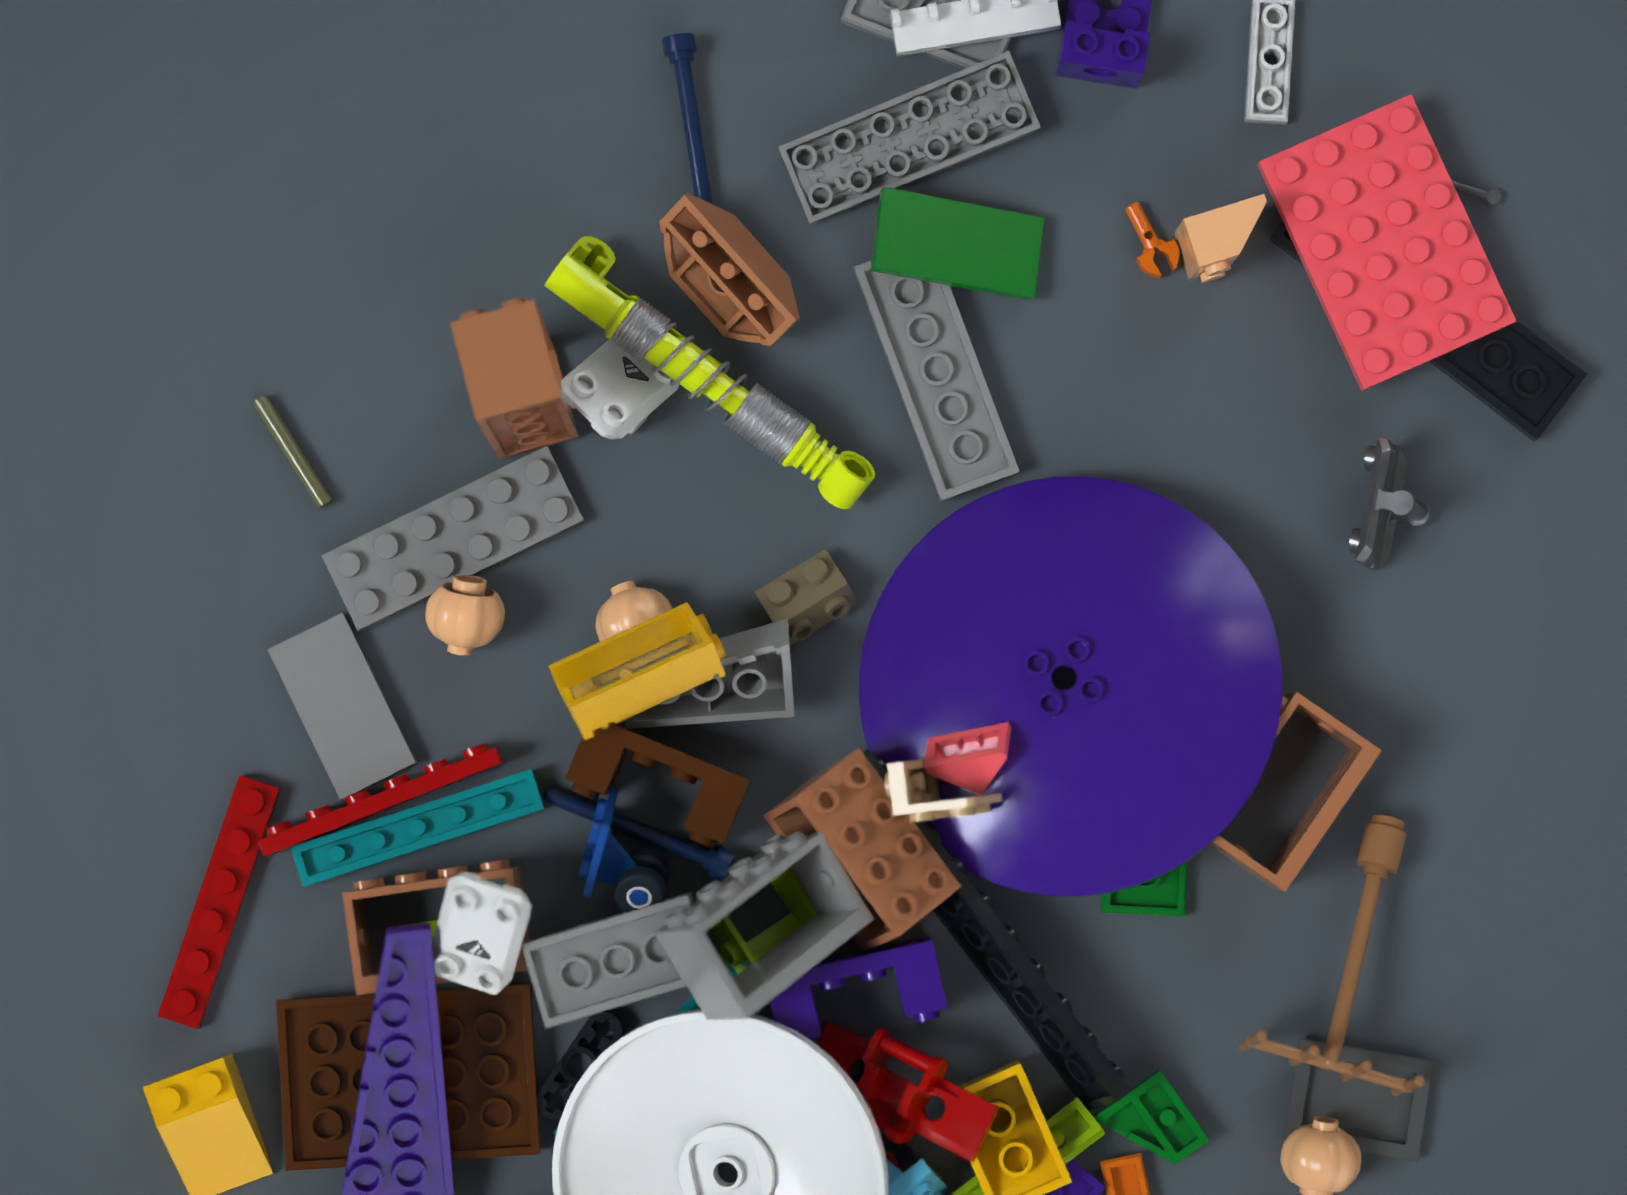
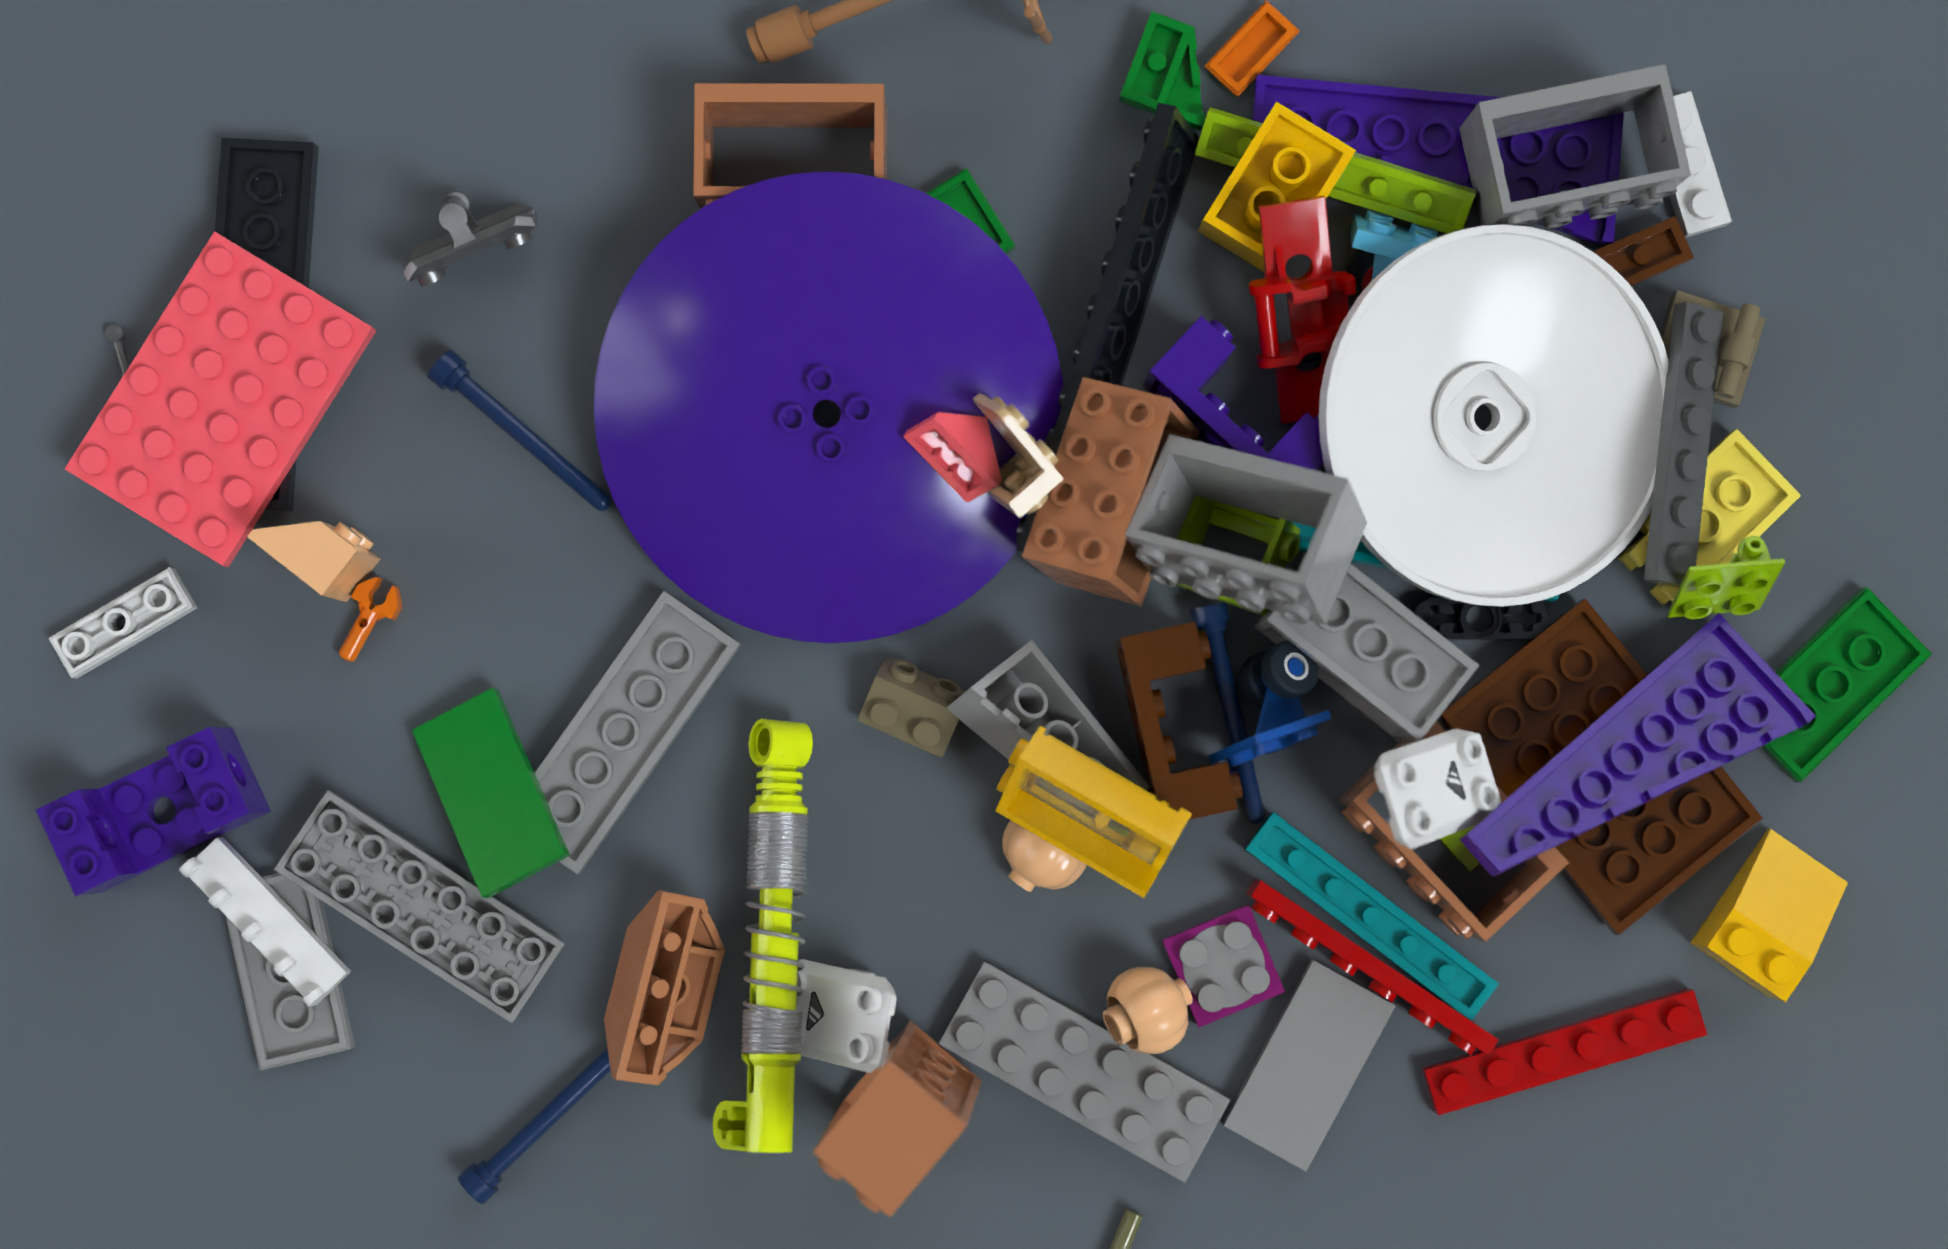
camera: 125 degrees left, 0 degrees up
(458, 694) = (1223, 965): none -> light grey piece
(1291, 425) = (452, 373): none -> dark blue piece

